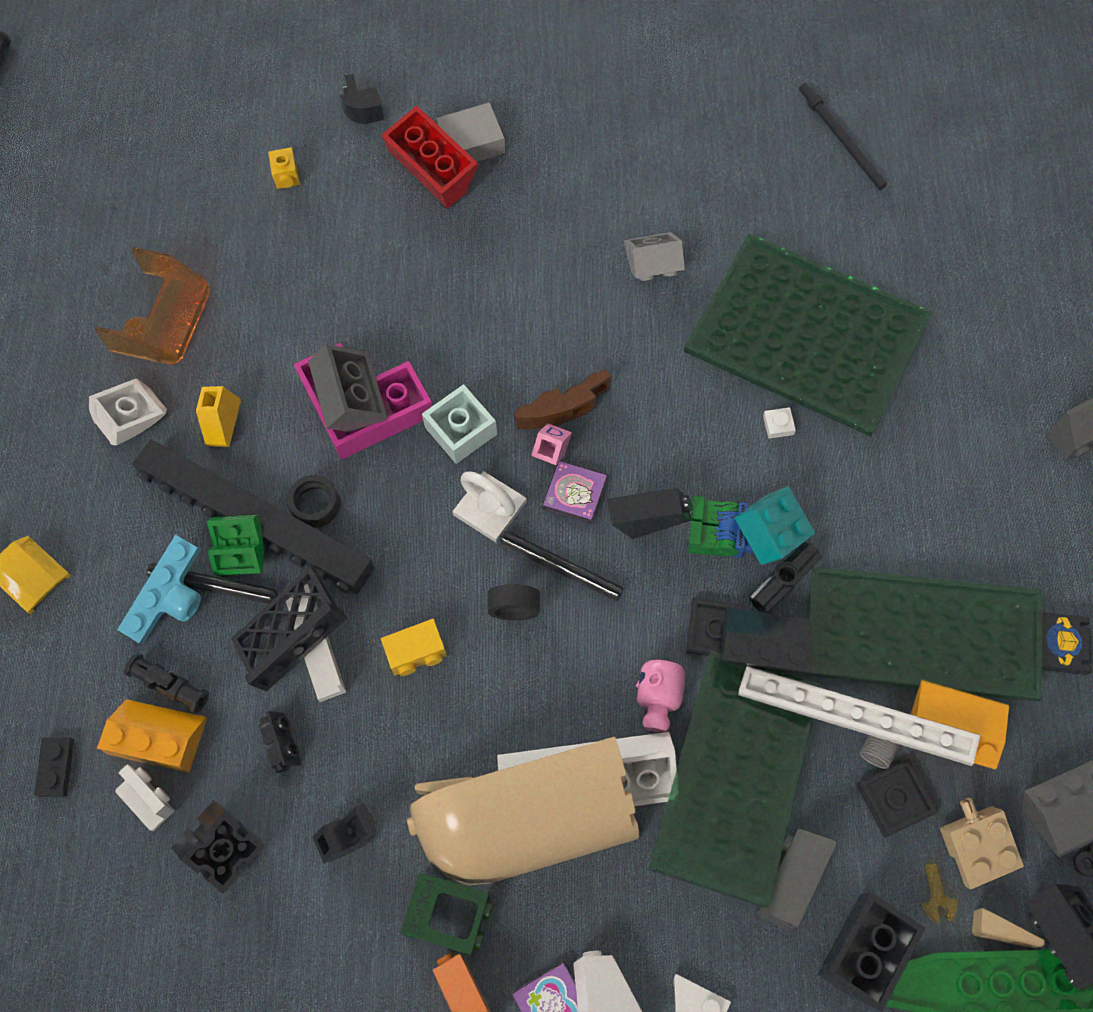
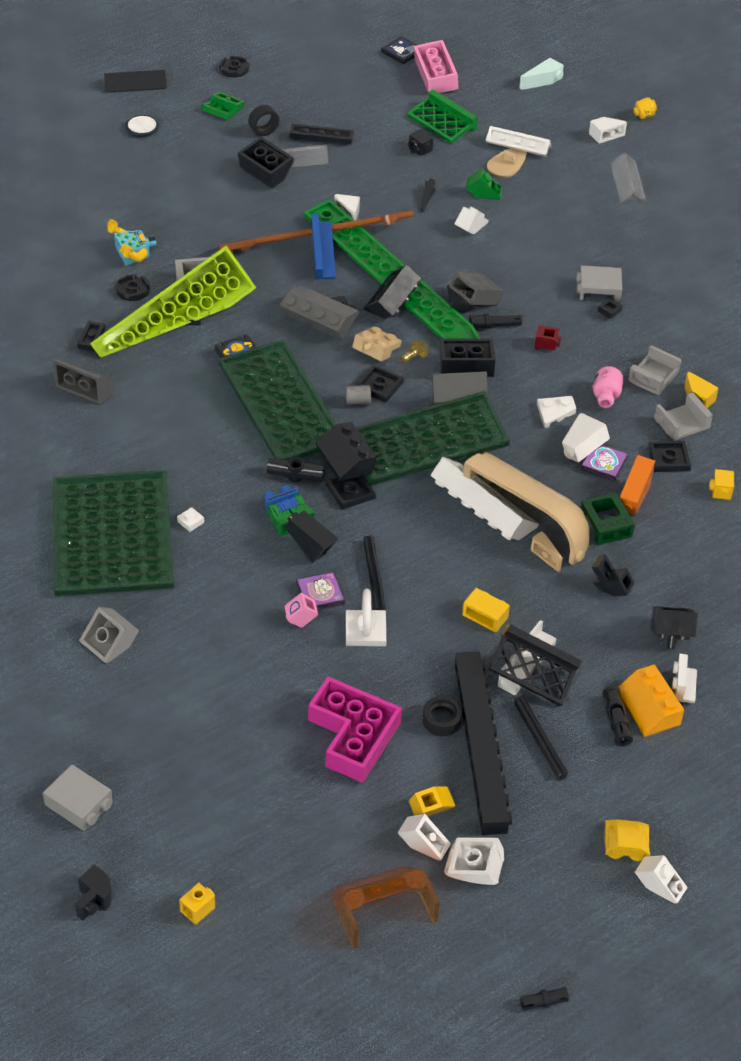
camera: 130 degrees left, 20 degrees down
(54, 767) = (713, 743): black plate -> none
(164, 592) = (569, 751): medium azure plate -> none
(187, 385) = (424, 836): none -> white slope
(236, 545) = (507, 730): green slope -> none
(276, 729) = (590, 646): black hinge -> none
(346, 388) = (361, 716): dark grey slope -> none
(431, 156) = (121, 801): red slope -> none
(459, 424) = (324, 660): light aqua brick -> none
(513, 602) = (420, 572): black tyre -> none
(556, 408) = (271, 625): reddish brown slope -> none
(660, 692) = (412, 488): bright pink piece -> none
(775, 525) = (271, 477): teal brick -> none
(860, 715) = (356, 396): white tile -> none
(966, 713) = (324, 367): light orange slope -> none
(996, 928) = (413, 323): tan slope -> none

